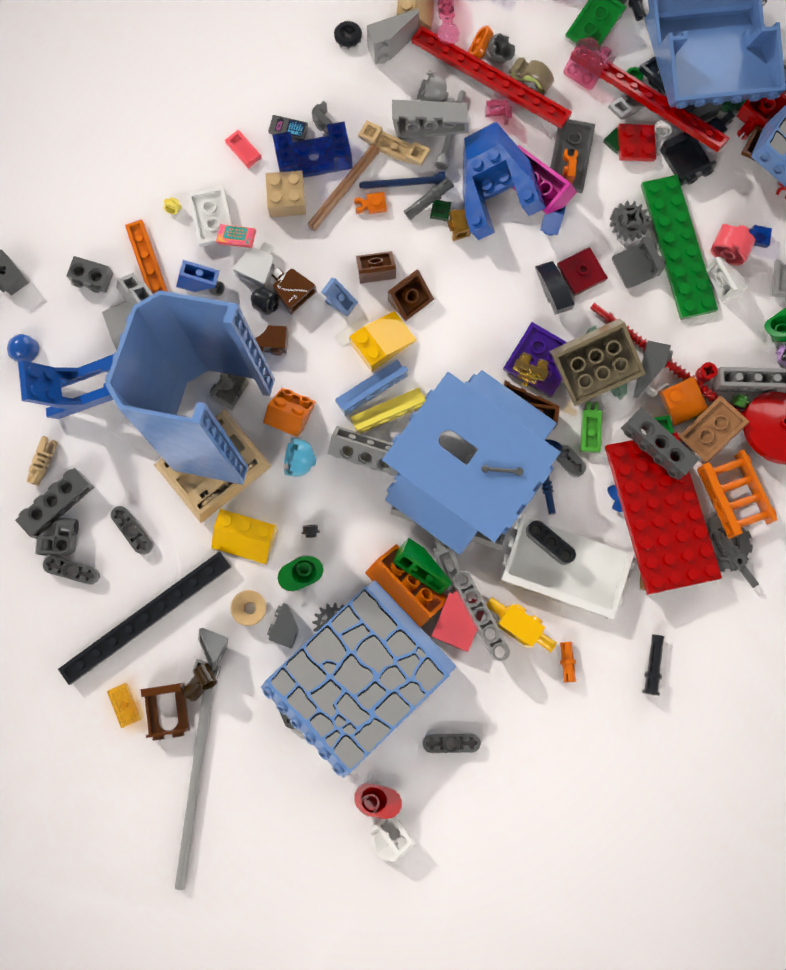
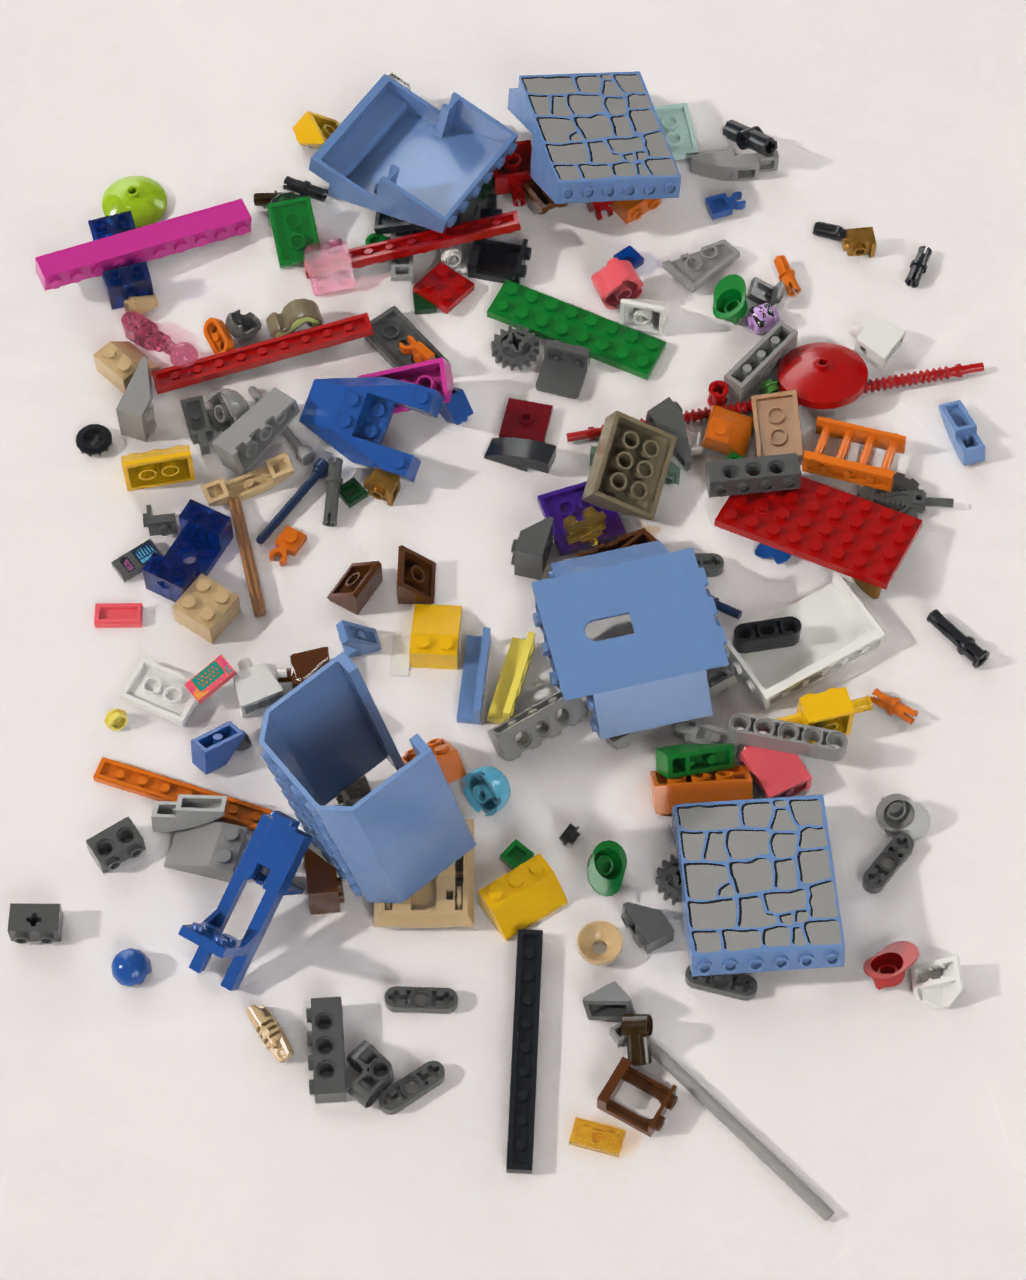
camera: 50 degrees left, 20 degrees down
(269, 510) = (515, 854): none -> green plate
(357, 84) = (158, 467): none -> yellow slope
(411, 80) = (197, 422): none -> dark grey hinge
(488, 350) = (533, 549): none -> dark grey slope
(489, 728) = (903, 815): none -> light grey piece
(498, 108) = (300, 369): clear pink bracket -> none
(519, 471) = (680, 594): dark grey hinge -> none
(591, 429) = (686, 524): bright green hinge -> none

